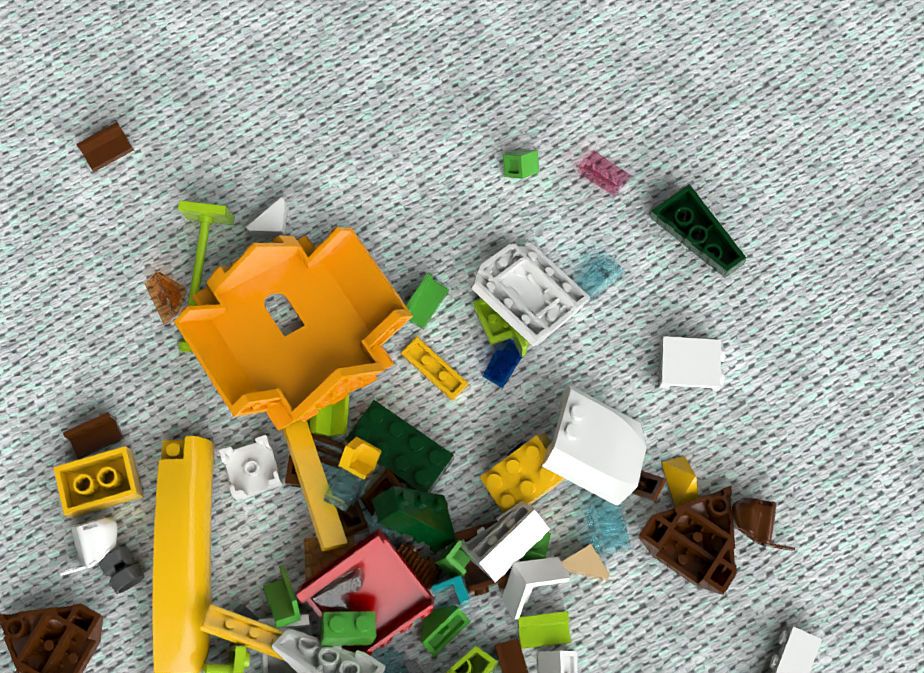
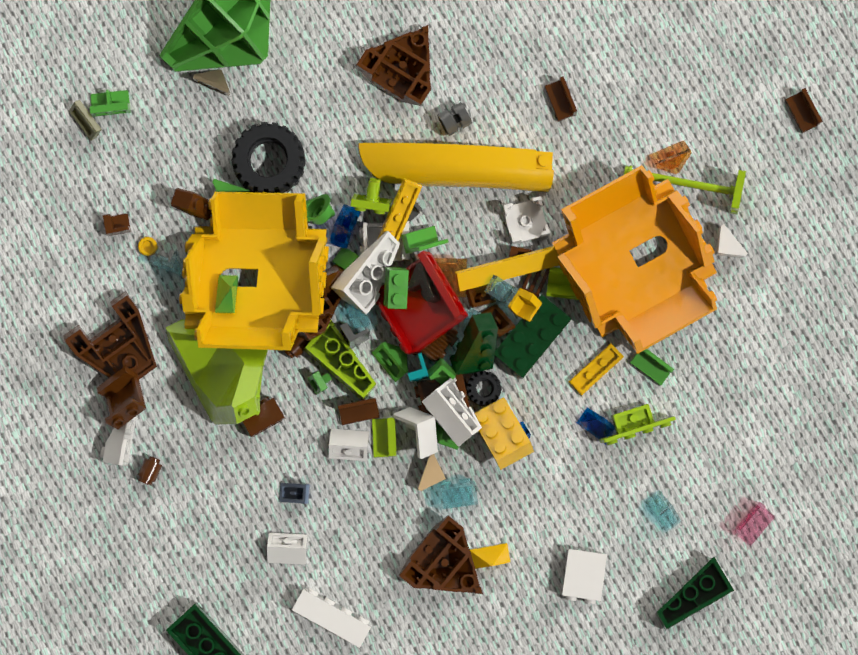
camera: 90 degrees right, 10 degrees up
(92, 542) = (476, 98): white piece -> none
(98, 482) = (523, 102): yellow brick -> none
(469, 490) = (484, 376): none -> black tyre
(521, 163) = (766, 454): bright green panel -> none
(528, 291) = (652, 448): white wedge -> none
(596, 447) = (520, 490): white wedge -> none
(649, 486) = (489, 524): reddish brown slope -> none
(756, 521) = (453, 609): reddish brown piece -> none

